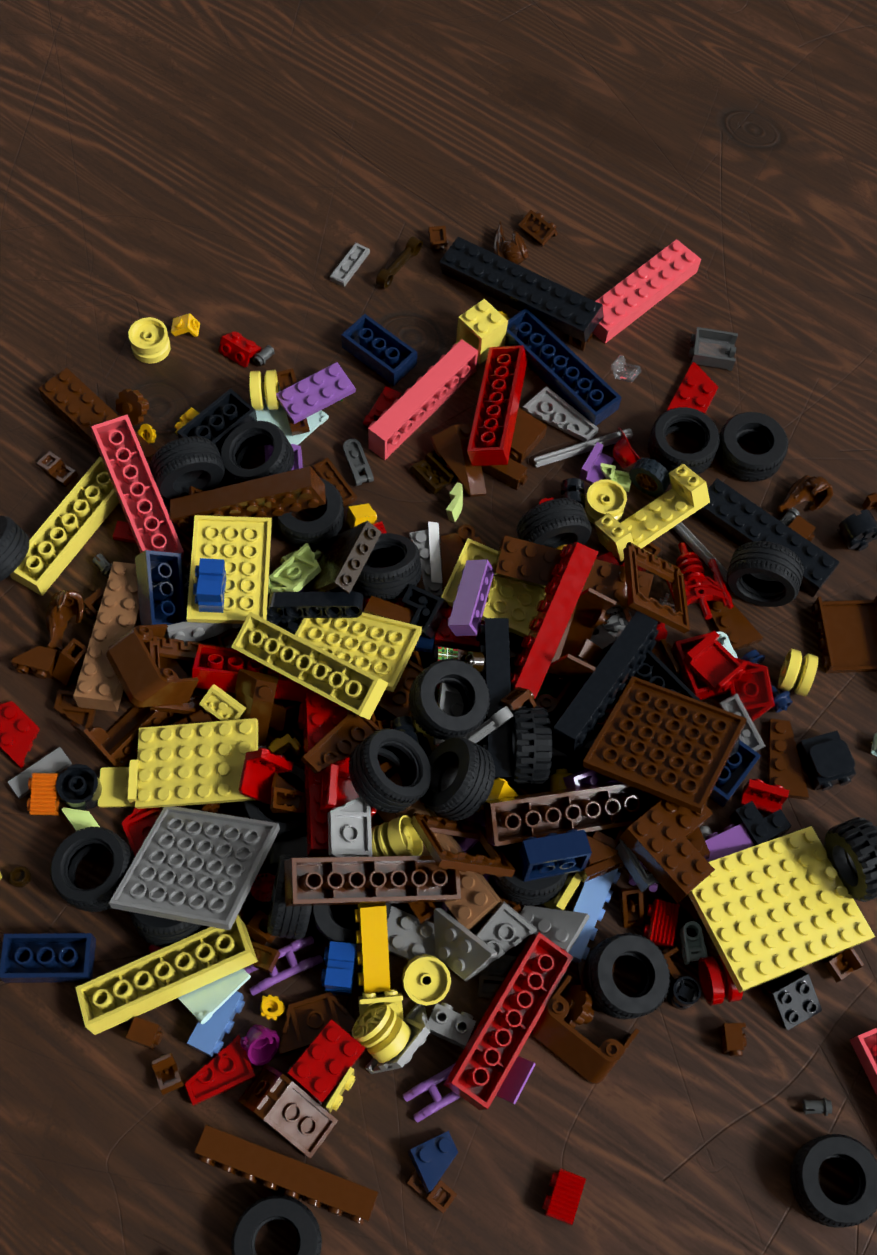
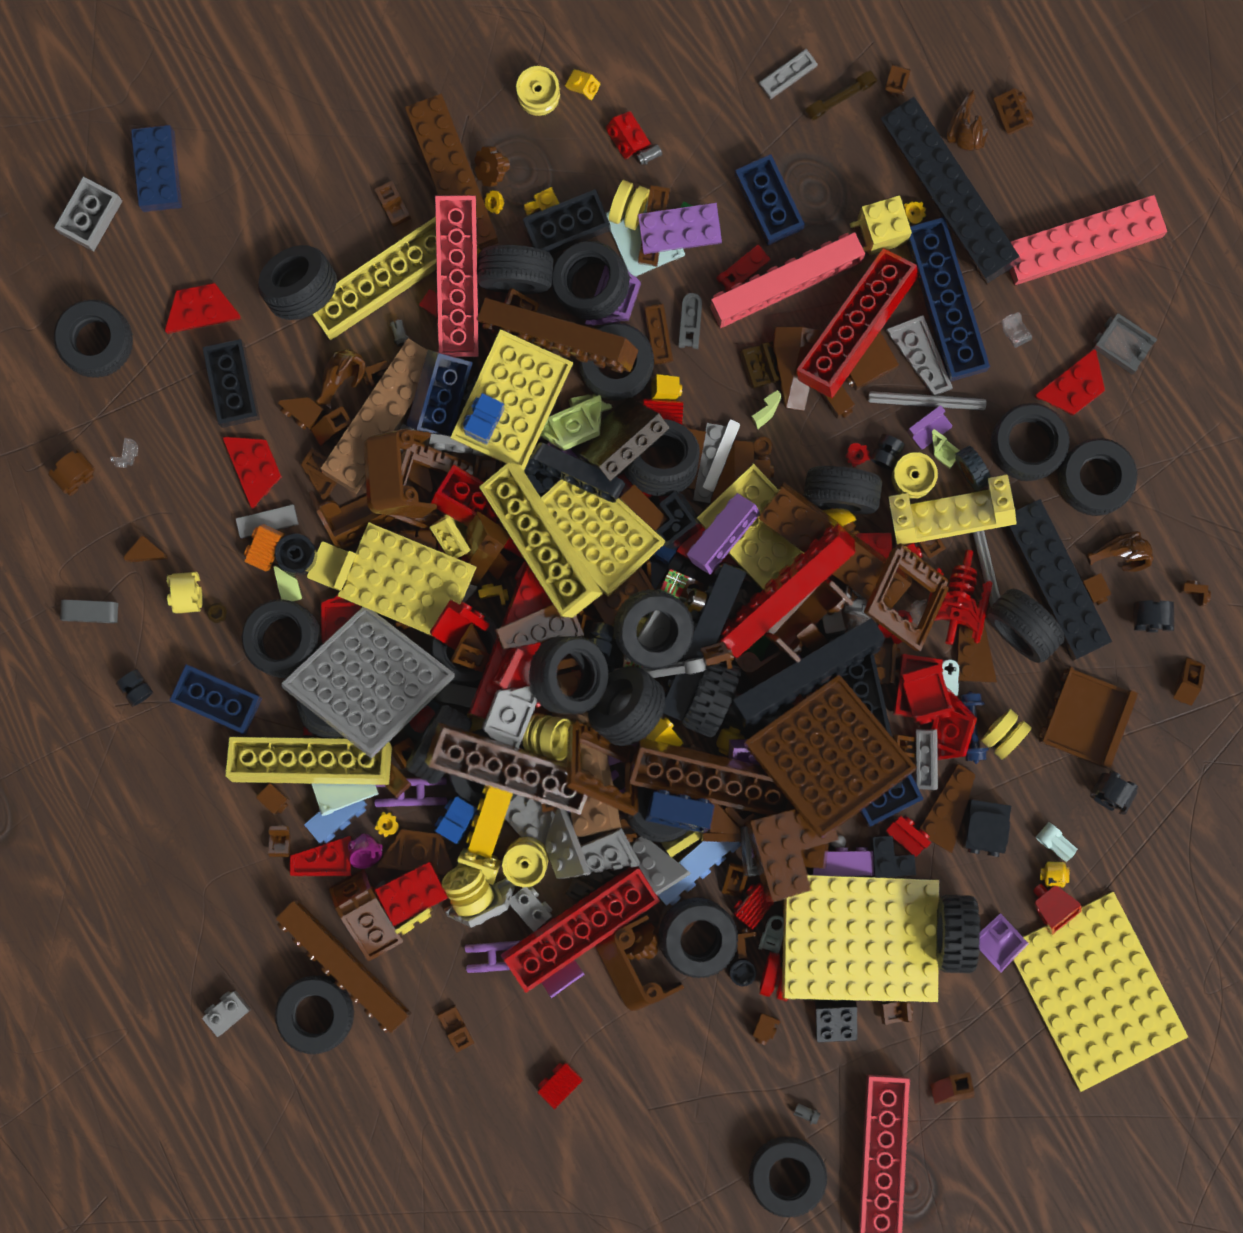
camera: 30 degrees right, 20 degrees up
(433, 1159) = (467, 1007): dark blue wing -> none
(623, 451) = (963, 427): red piece -> none
(790, 515) = (1093, 569): dark grey pin -> none

